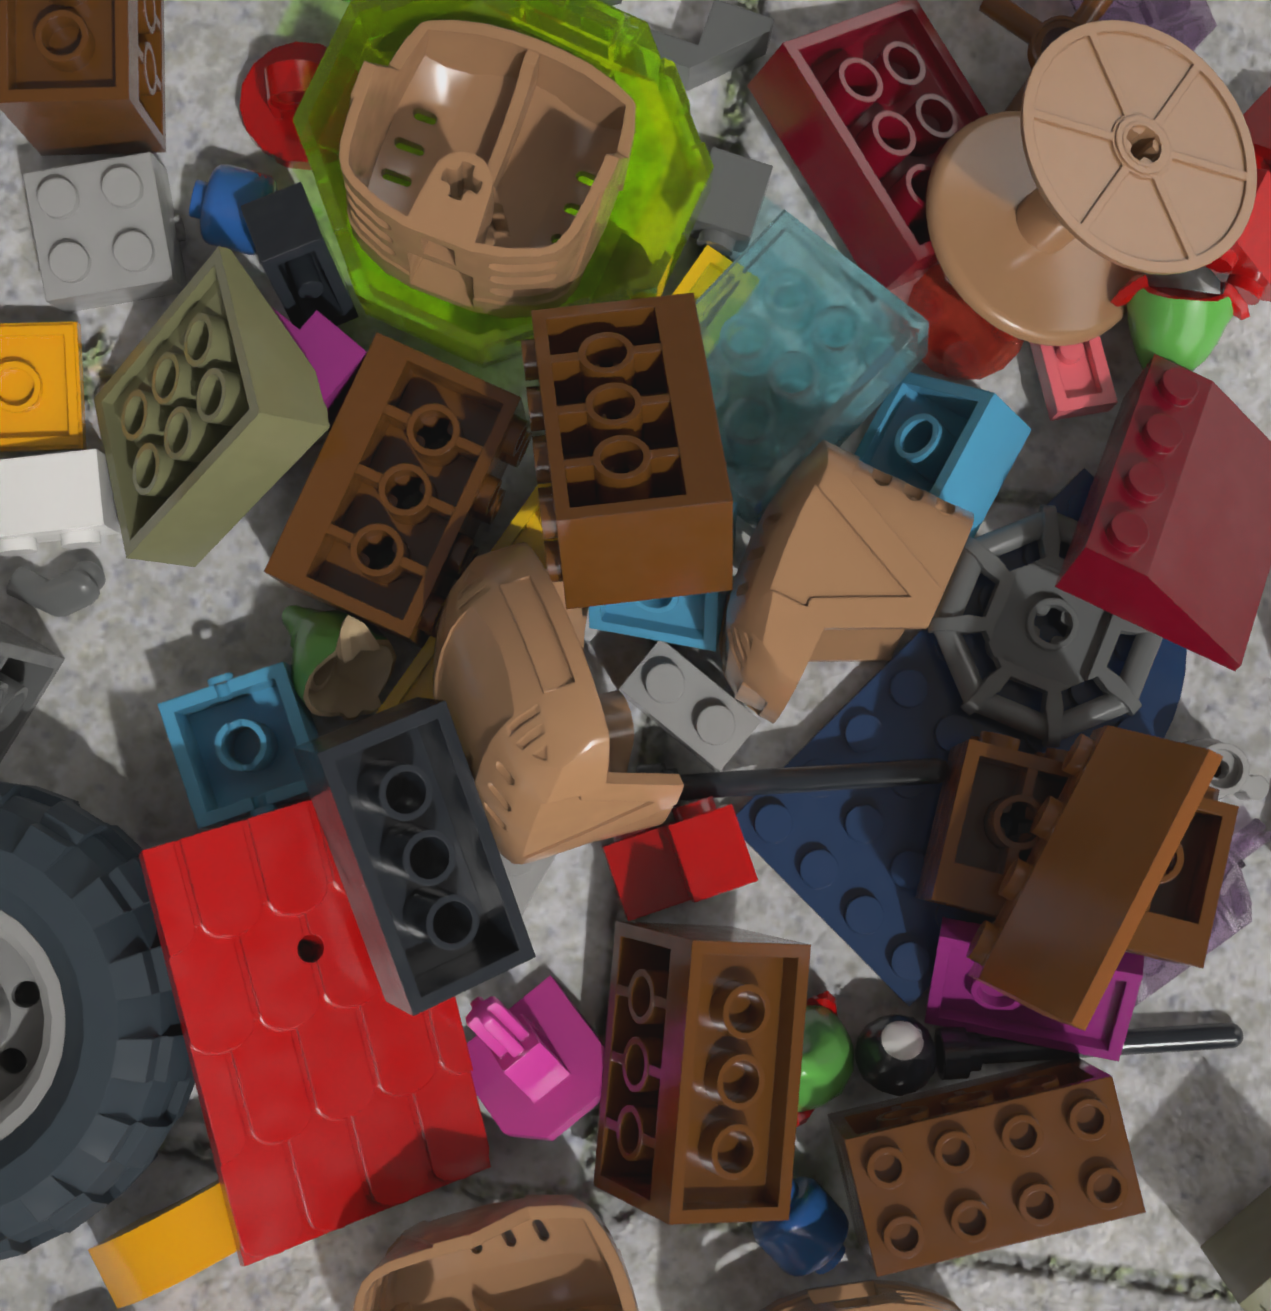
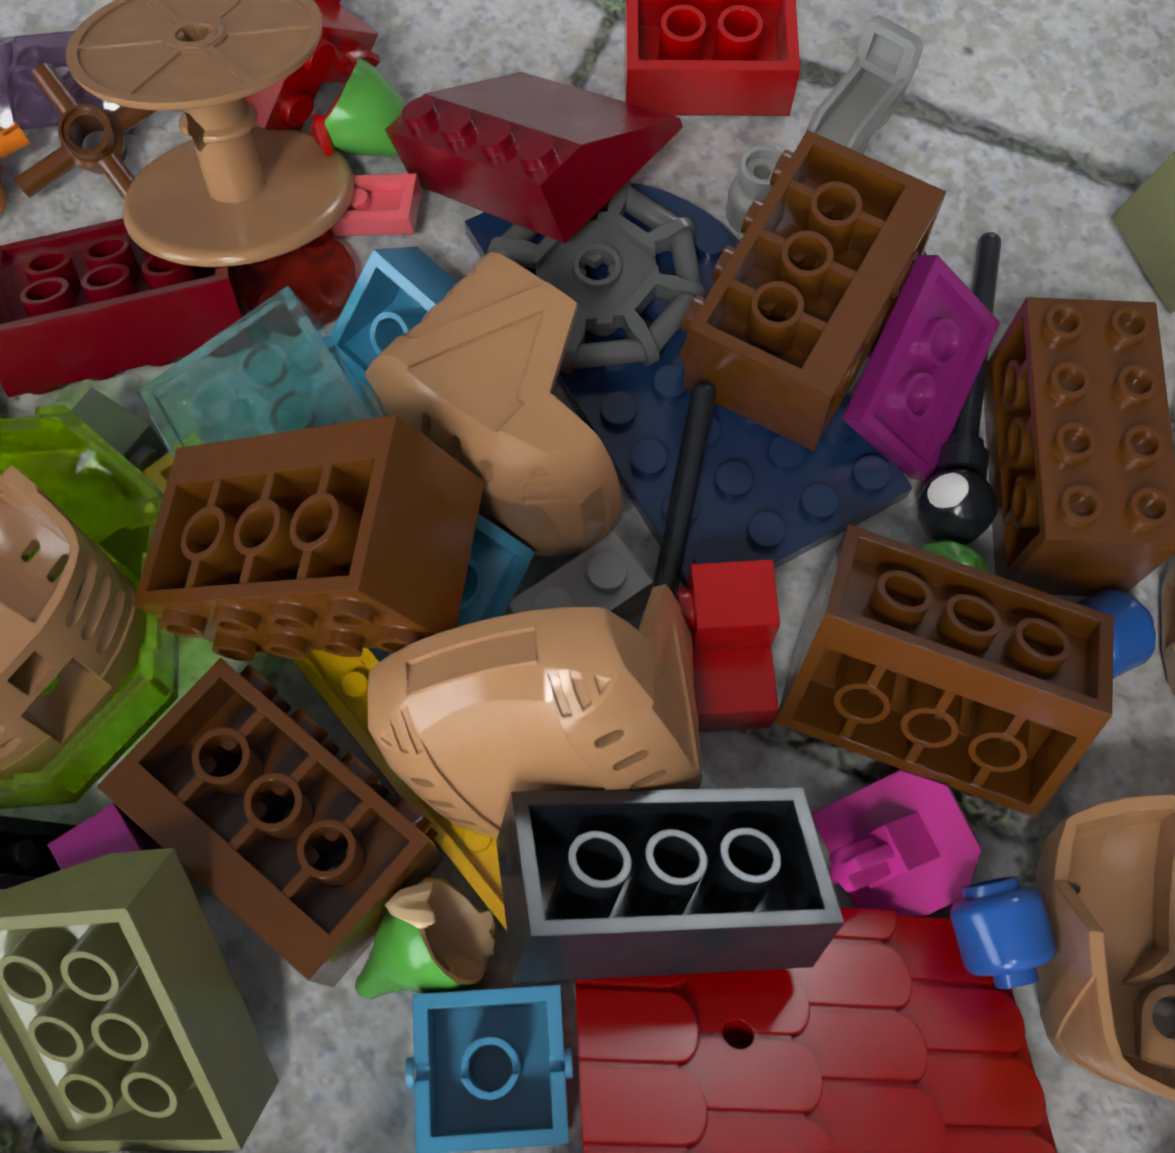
camera: 70 degrees left, 15 degrees down
(475, 1169) = (1003, 931): none -> blue head
(1090, 871) = (855, 217): dark orange slope -> none

